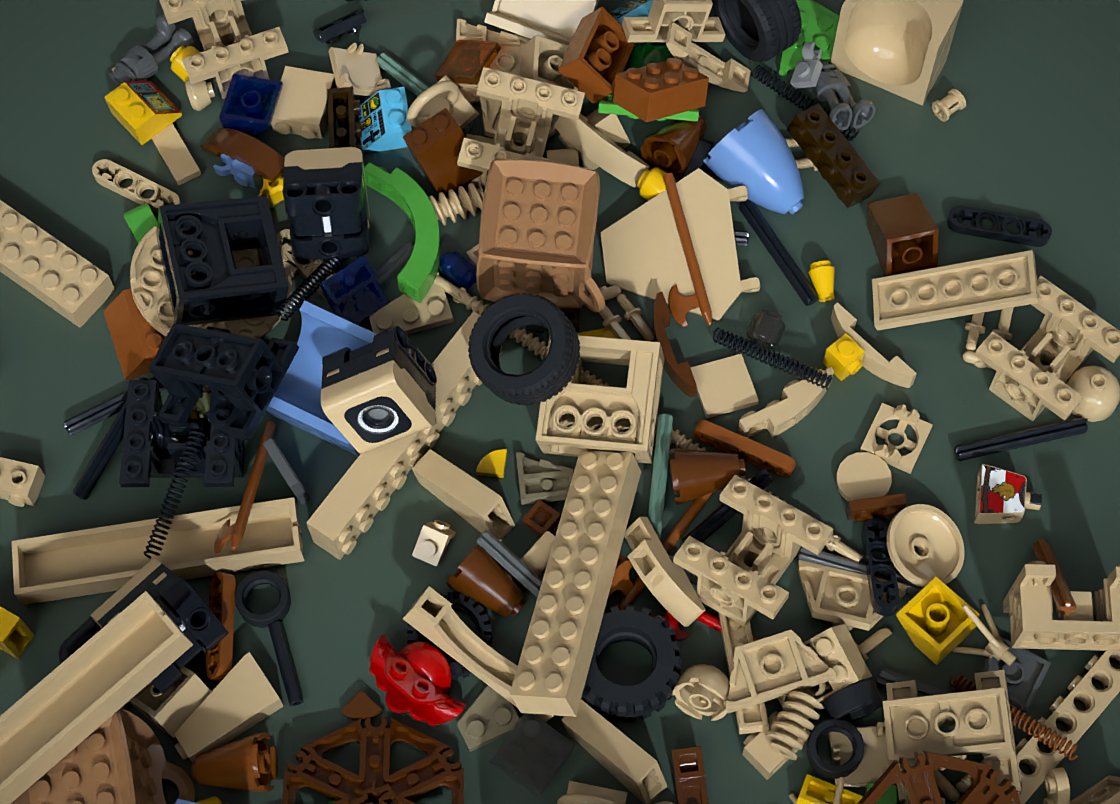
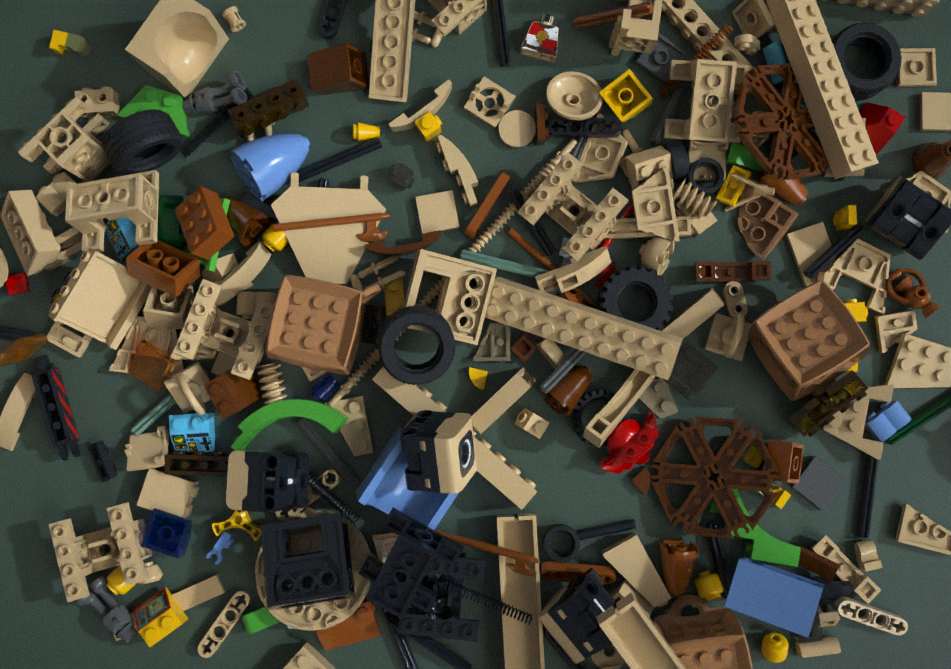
camera: 85 degrees left, 20 degrees up
(246, 149) = (209, 539): reddish brown slope -> none
(286, 471) = (473, 521): dark grey tile -> none
(354, 292) = (339, 464): clear blue slope -> none
(702, 472) = (507, 234): reddish brown cone -> none
(723, 74) = (178, 188): tan slope -> none
(775, 357) = (452, 142): black piece -> none
(807, 71) = (192, 114): light grey plate -> none
(996, 646) = (645, 64): tan plant -> none

